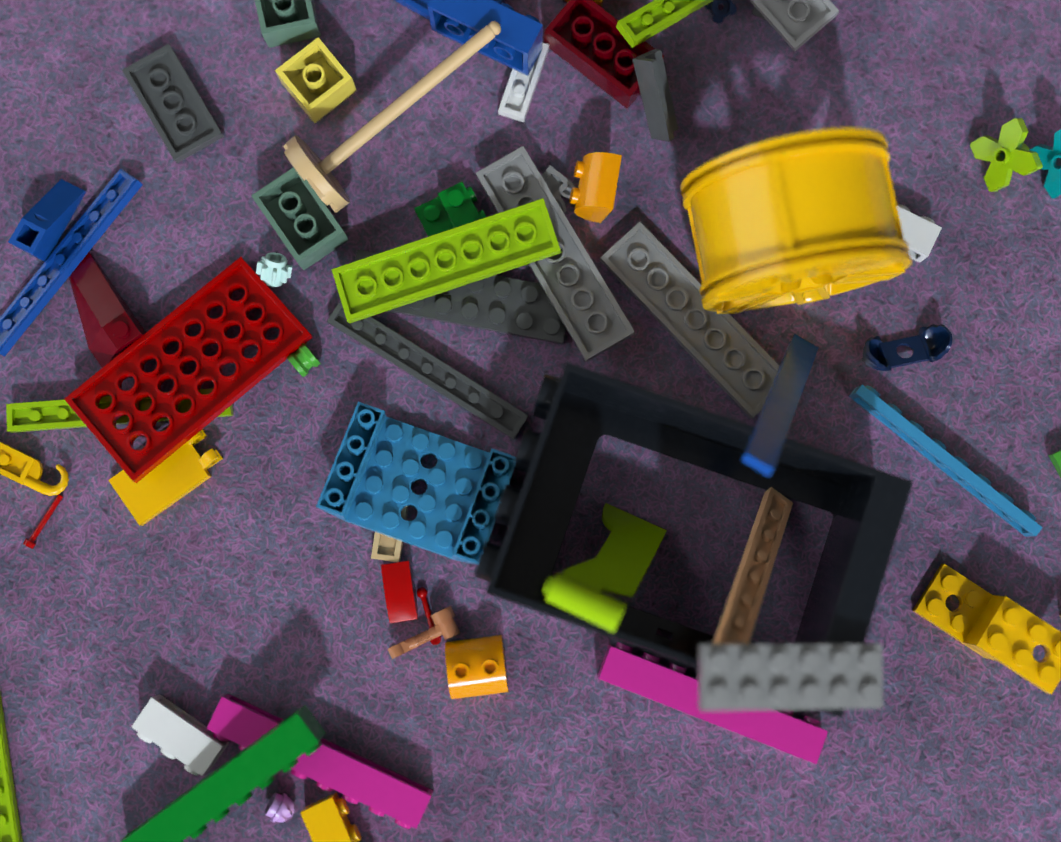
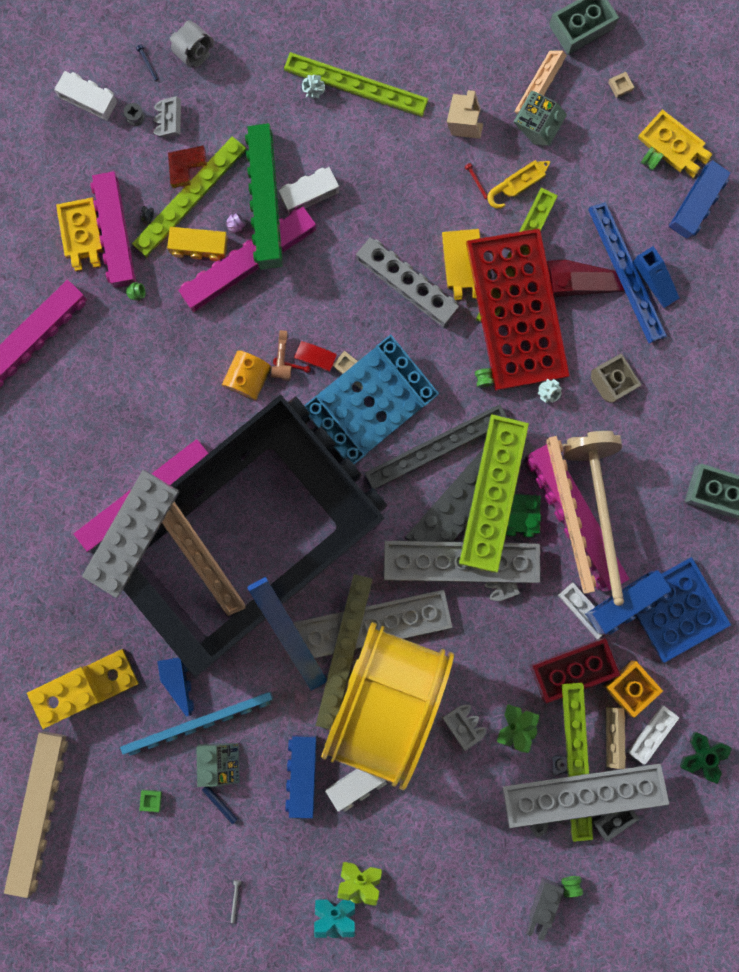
camera: 120 degrees right, 0 degrees up
(28, 818) = (313, 86): none -> light aqua gear
(172, 103) = (690, 389): dark grey plate -> none
(213, 199) = (614, 379): none -> dark tan slope
(239, 546) = (410, 292): none -> light grey brick
(300, 218) = (571, 420): sand green brick -> none
(316, 80) = (654, 481): light yellow brick -> none
(411, 153) = (573, 522): none -> light nougat plate
(413, 153) = (540, 463): none -> dark pink brick
(596, 186) = (489, 611): light orange brick -> none
(615, 570) = (250, 478): lime door -> none
(656, 95) = (524, 683): dark grey panel -> none
(712, 74) = (520, 728): none -> bright green plant
(747, 333) = (344, 650): none -> olive plate
(755, 131) = (463, 727): none -> light grey plate
(919, 513) = (173, 677): none -> blue slope
(925, 296) = (302, 776): none -> blue brick
(929, 346) = (271, 758): dark blue piece -> none
(977, 406) = (217, 764): none -> sand green slope
(1019, 376) = (220, 805): none -> dark blue piece

